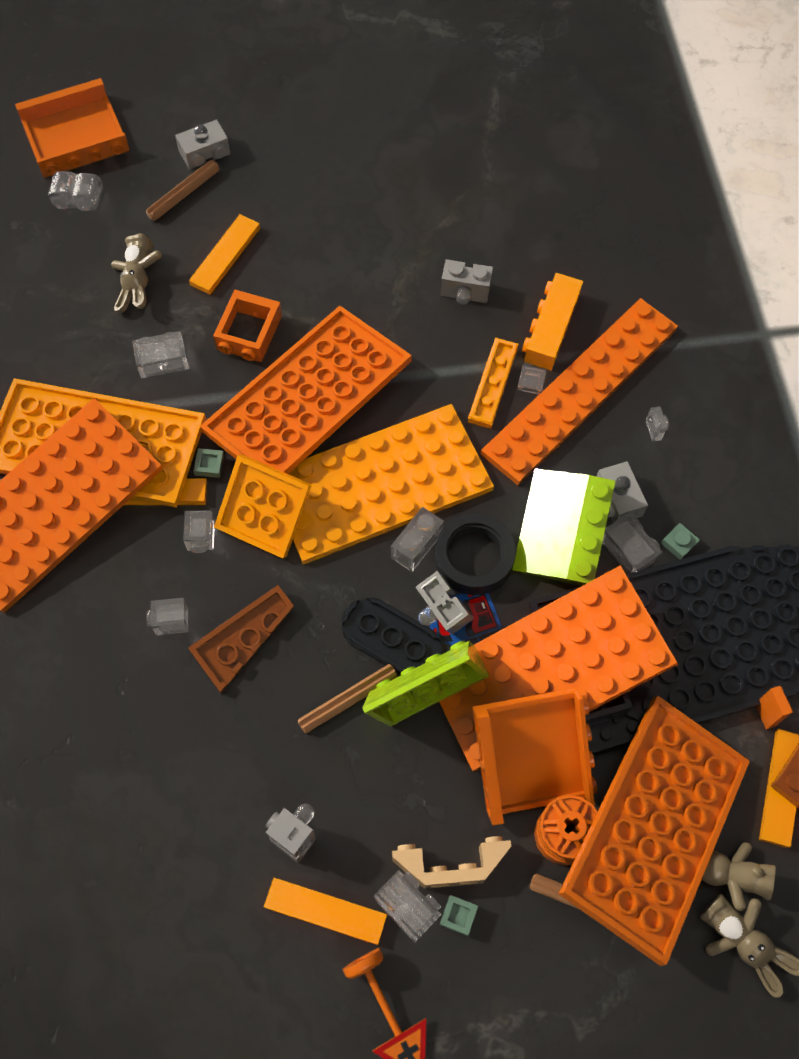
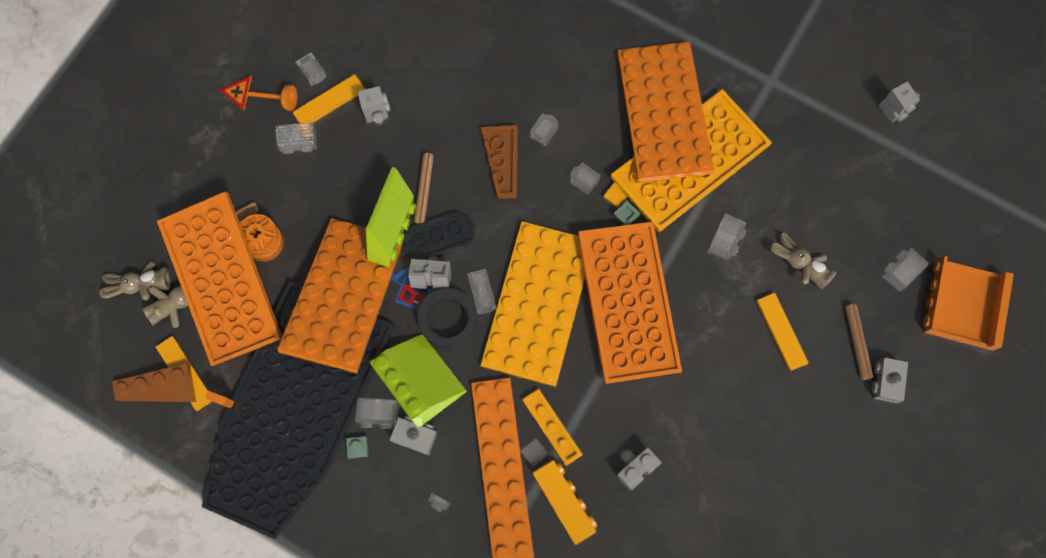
camera: 130 degrees right, 10 degrees up
(253, 306) = (707, 326): orange window -> none
(262, 506) = (569, 218): light orange plate -> none
(300, 970) = (311, 69): none -> clear brick
(458, 915) = (271, 158): sand green plate -> none
(490, 852) = (315, 154): tan slope -> none
(534, 751) = (309, 247): orange panel -> none

